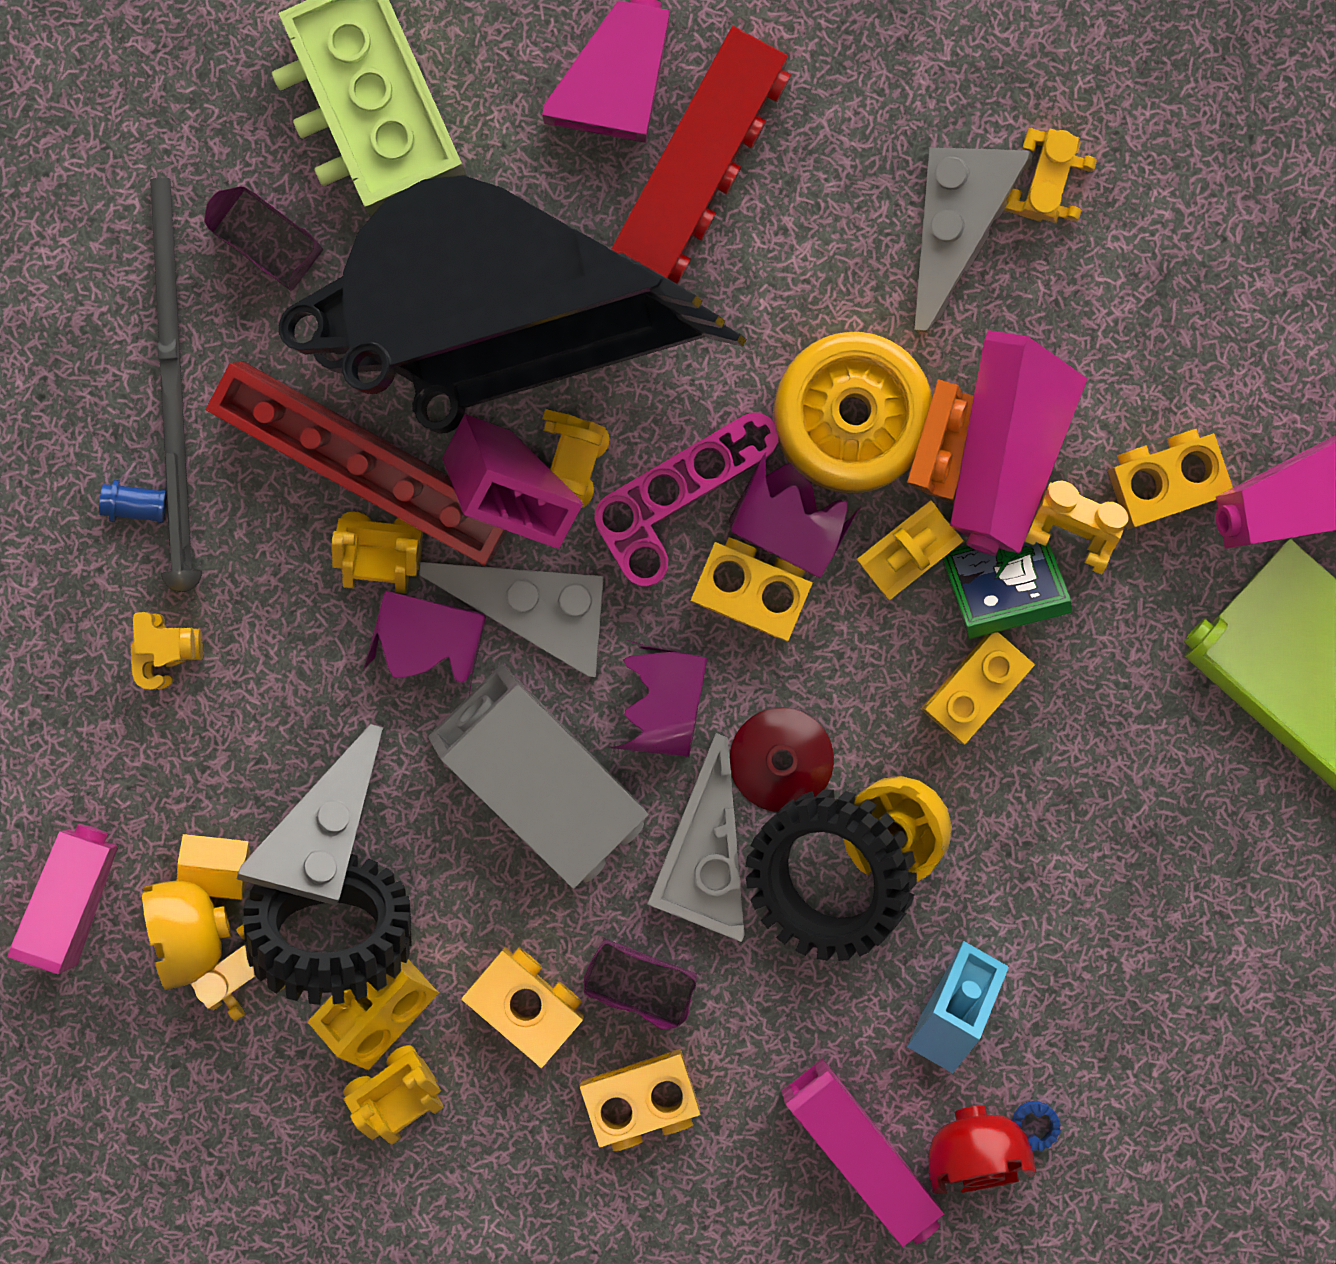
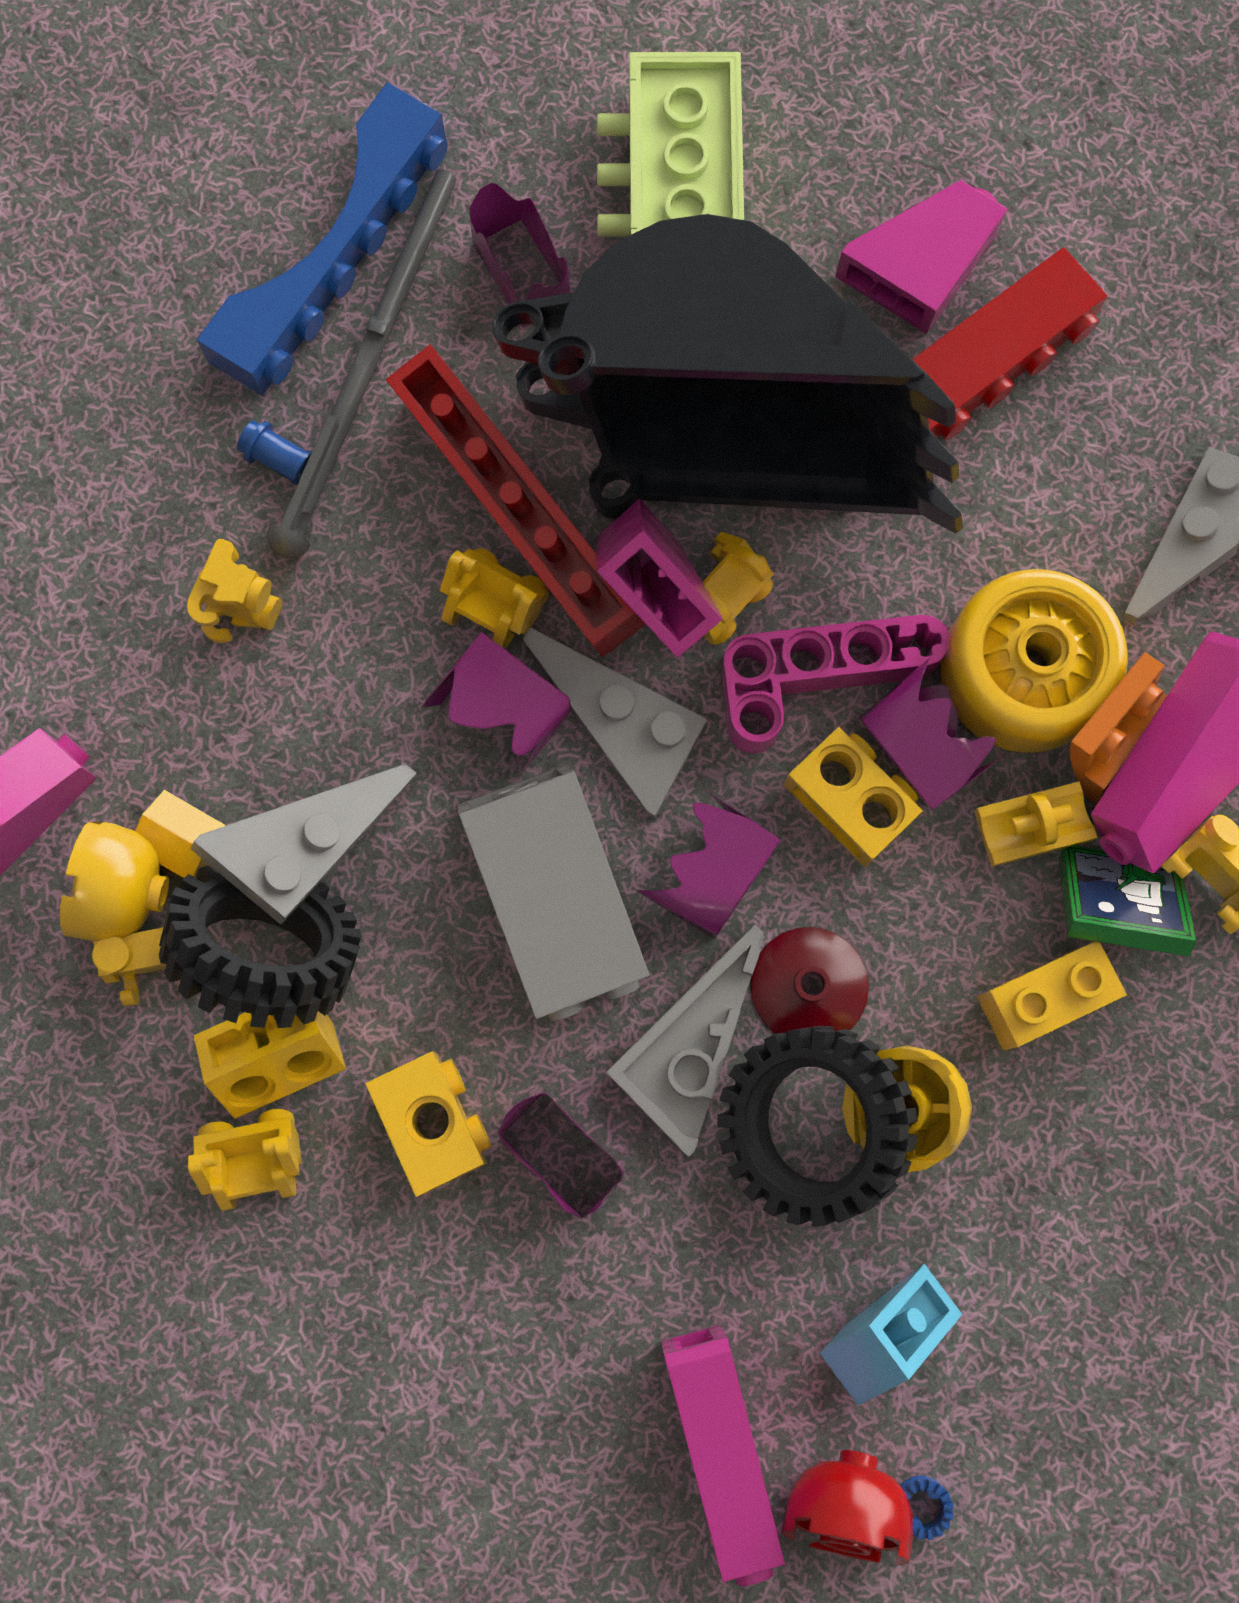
camera: 25 degrees right, 10 degrees down
(70, 398) = (263, 326): none -> blue arch
(635, 1086) = (507, 1263): yellow brick -> none

